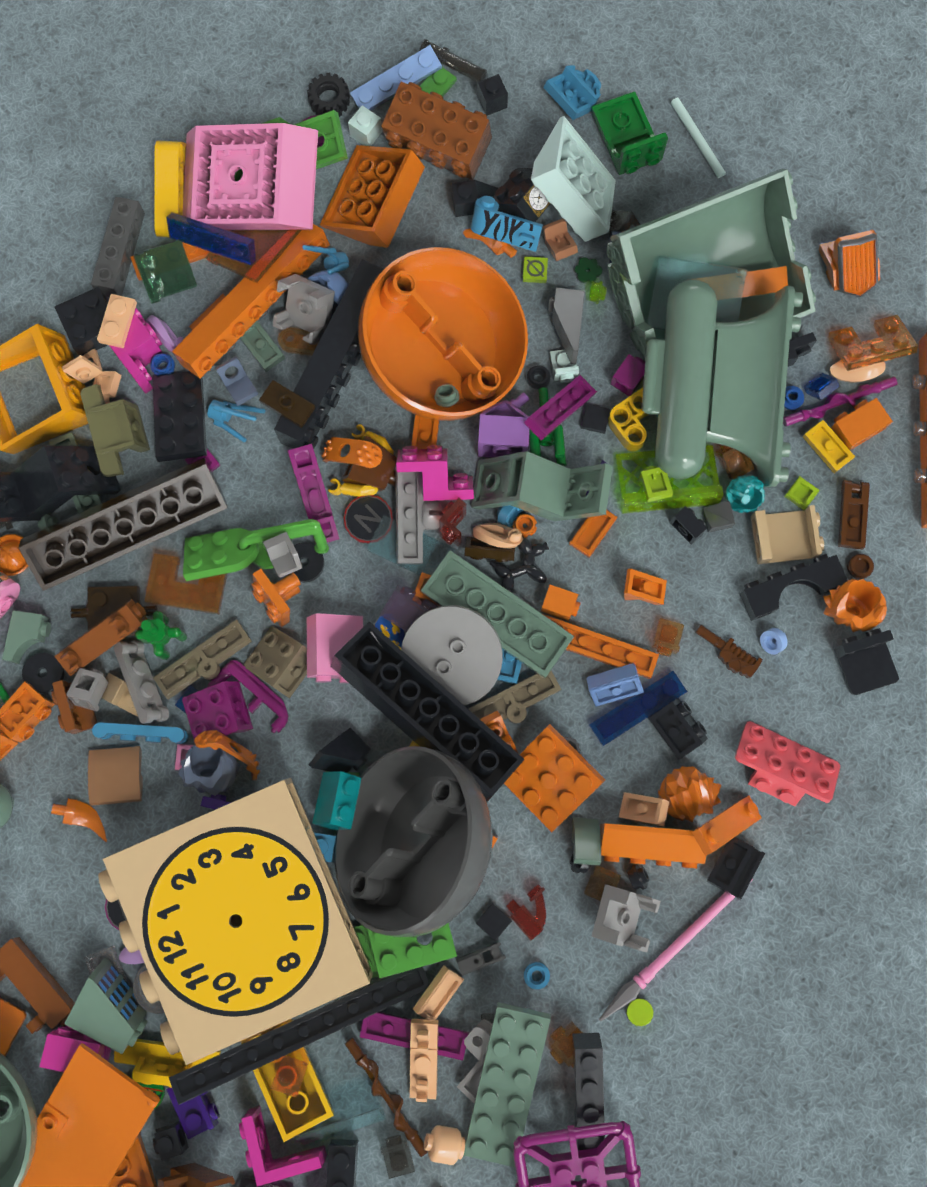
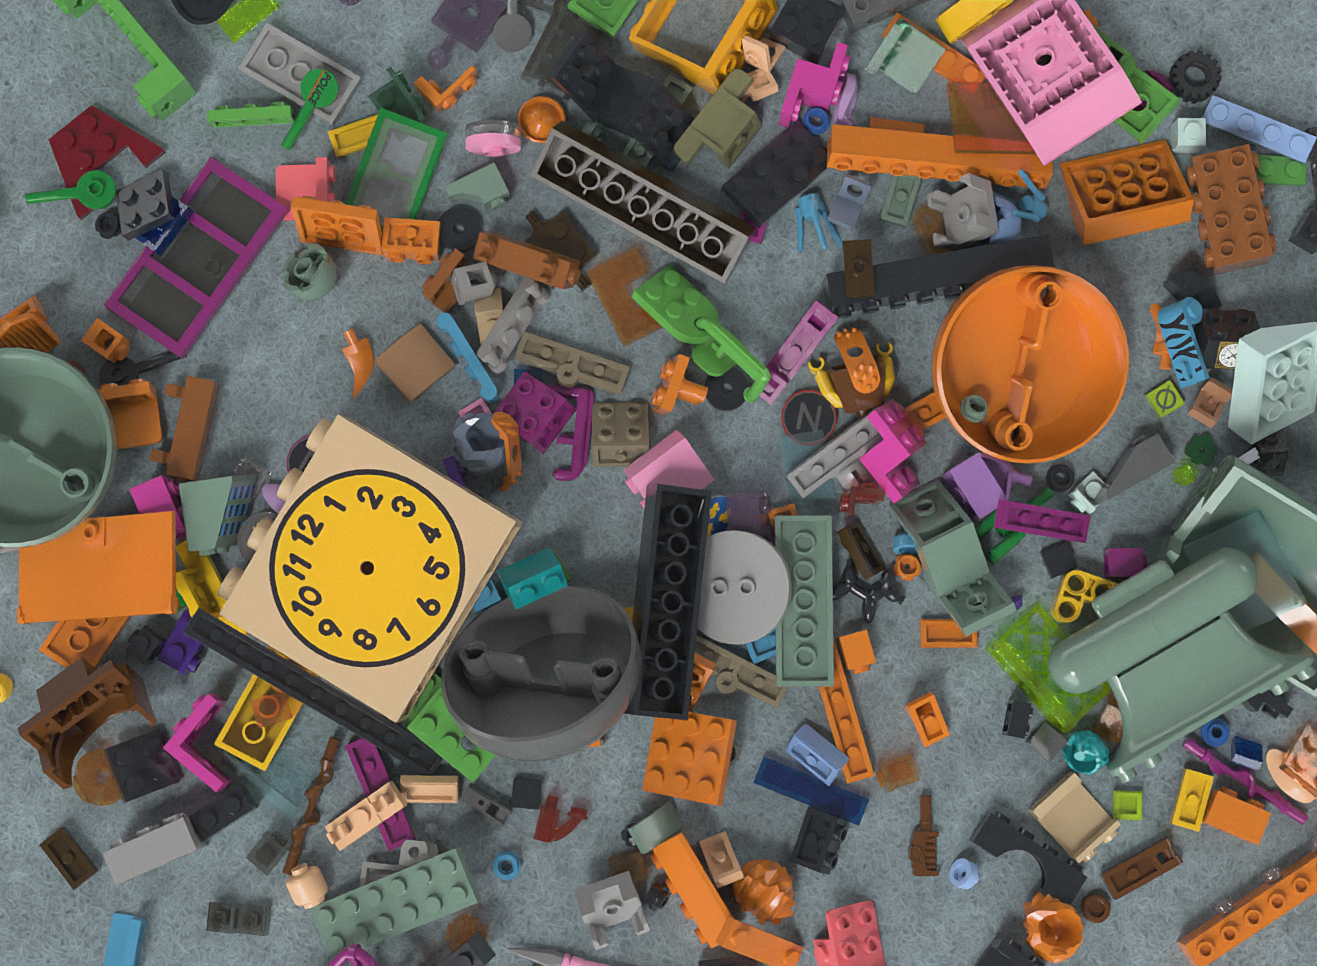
camera: 50 degrees right, 5 degrees up
(117, 321) = (822, 55): light nougat plate -> none
(159, 634) = (566, 309): green plant -> none
(211, 238) = (966, 78): clear blue plate -> none
(282, 554) = (716, 367): light grey panel -> none
(342, 754) = (577, 552): black slope -> none
(498, 535) = (878, 548): light nougat arm -> none
(655, 483) = (1032, 661): lime bracket -> none

